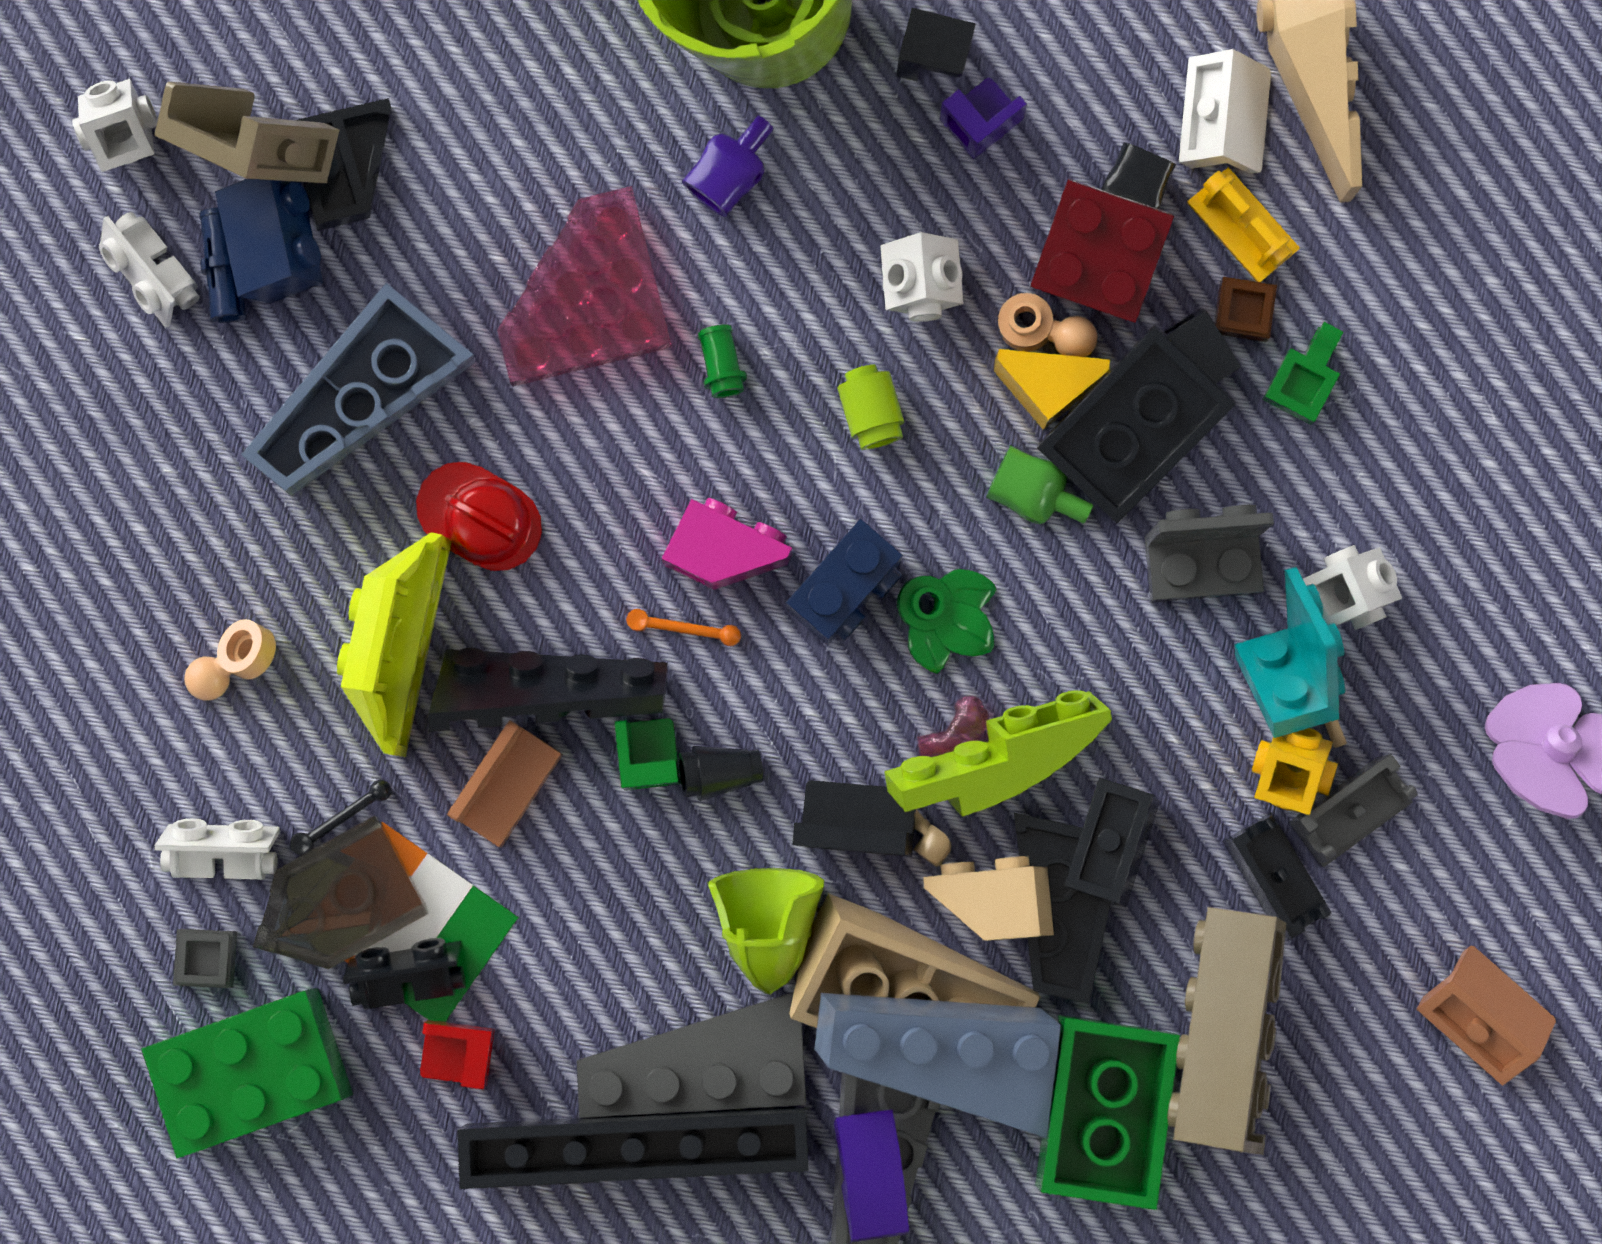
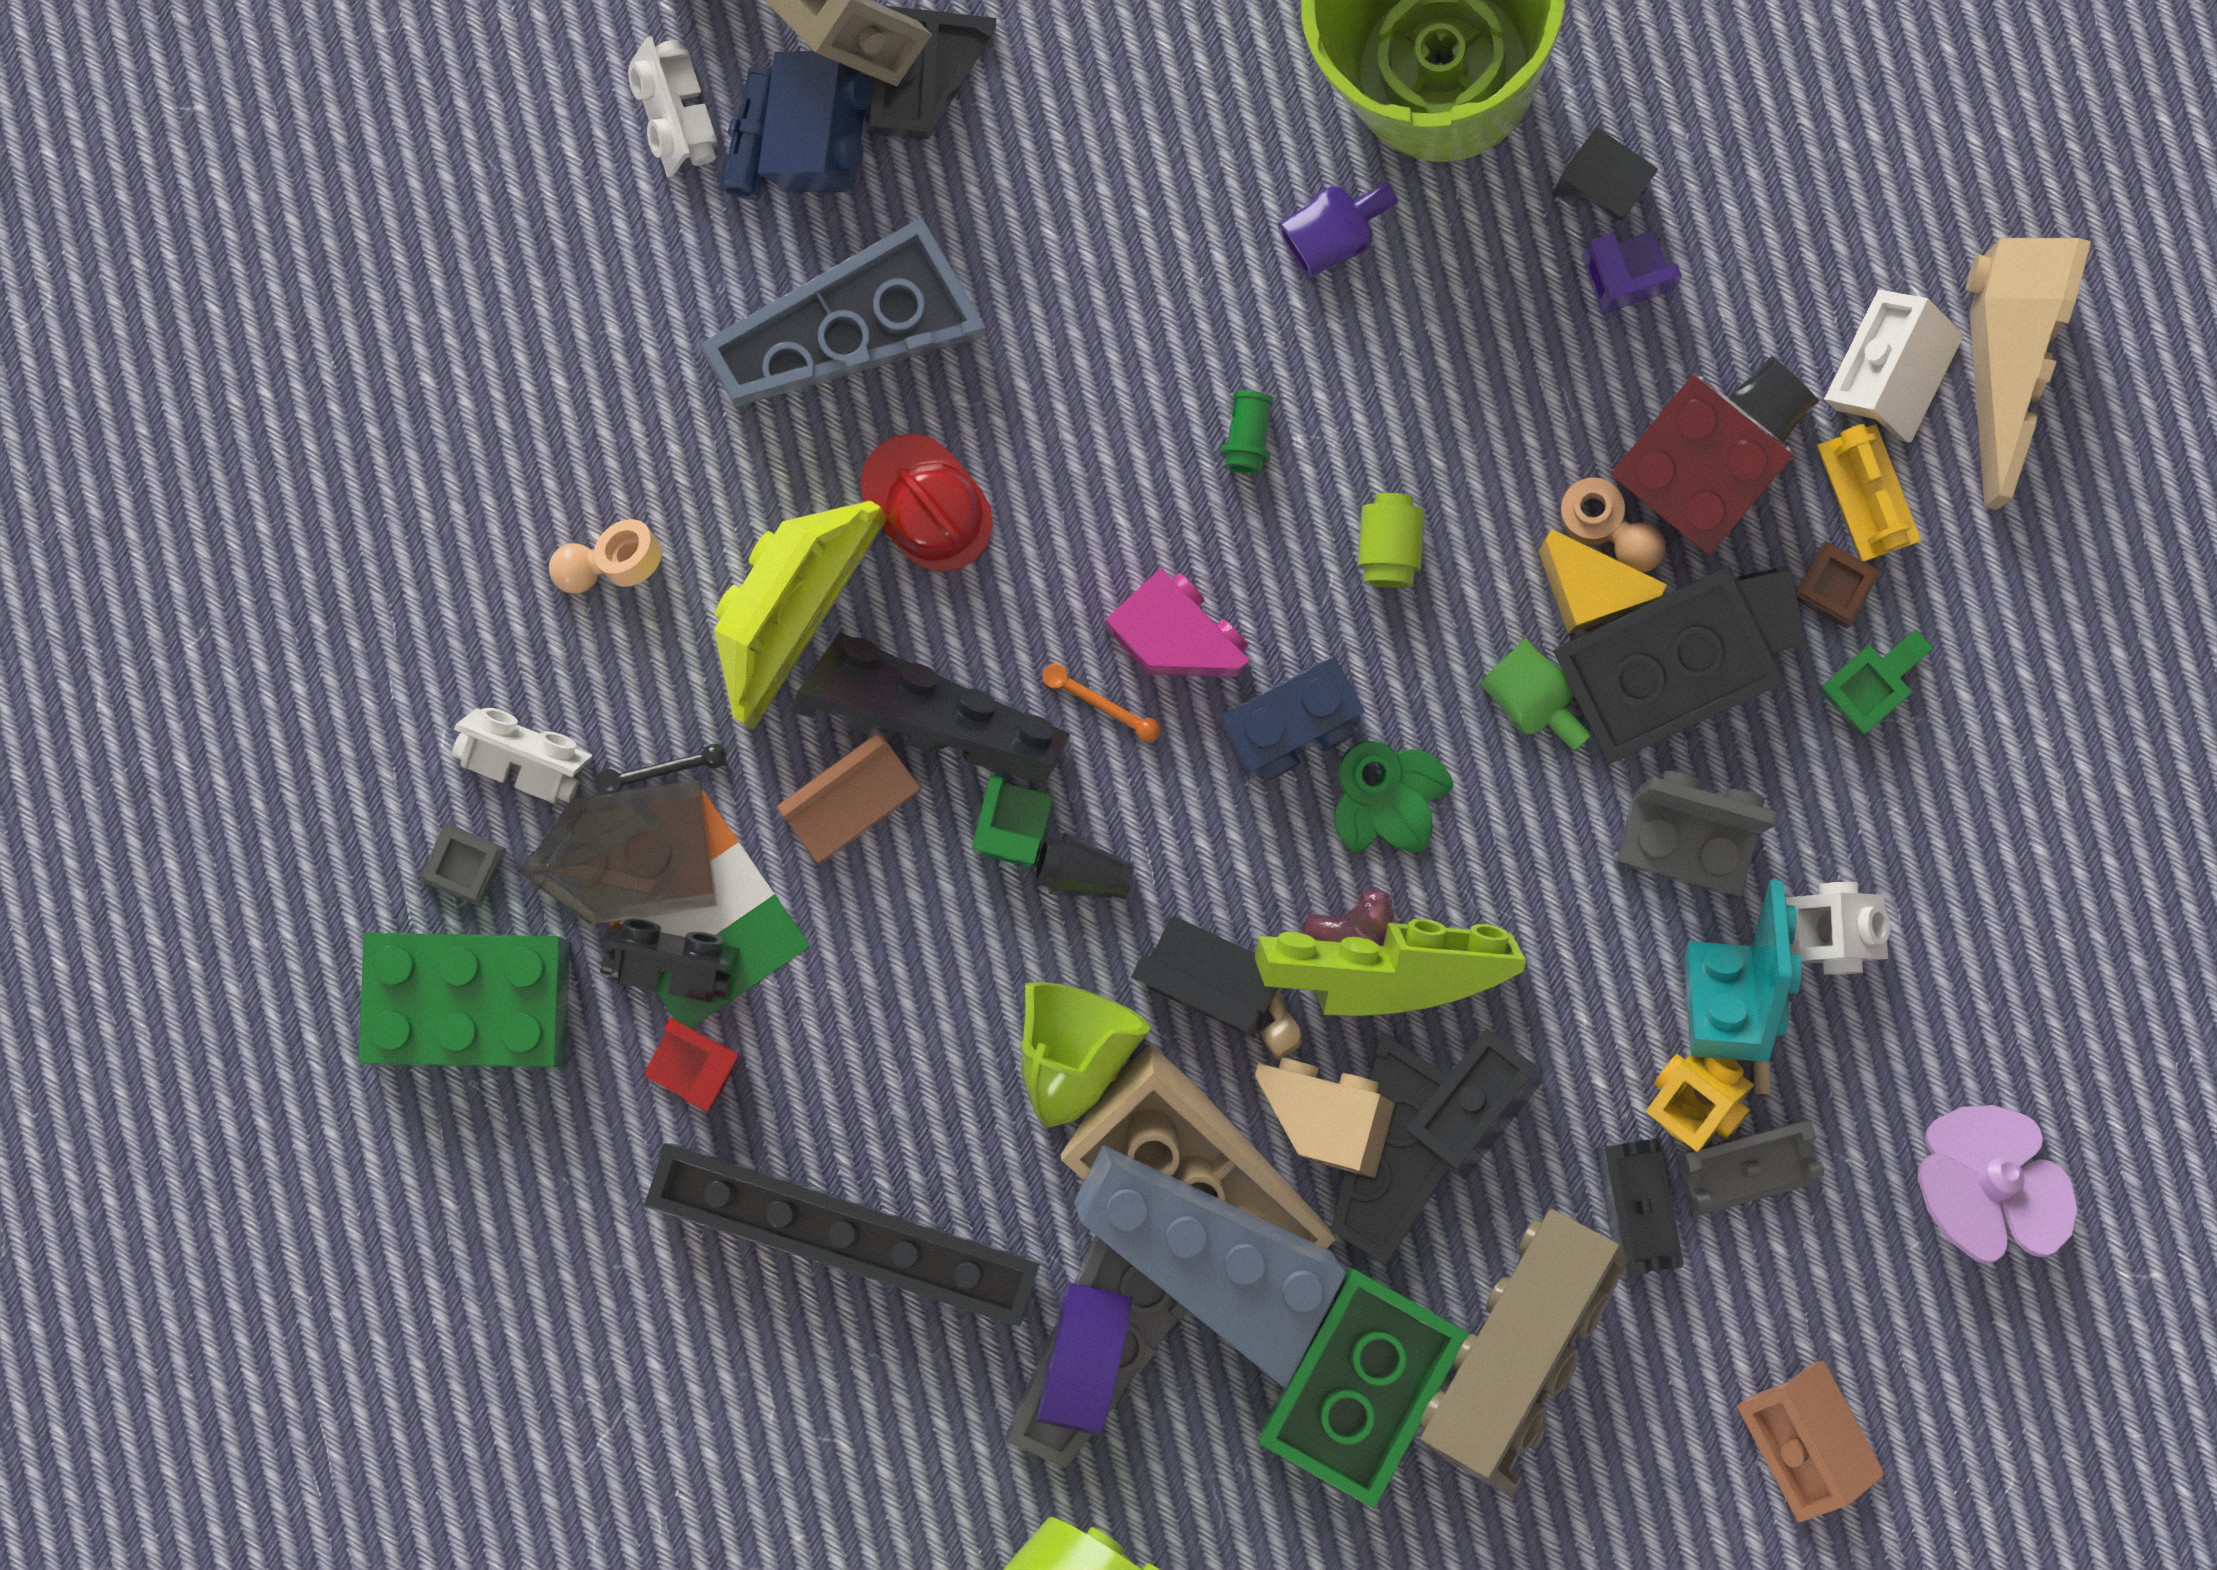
camera: 20 degrees right, 0 degrees up
(587, 297) = (1130, 310): clear pink plate -> none
(710, 1065) = (959, 1180): dark grey wing -> none
(922, 275) = (1498, 419): white brick -> none

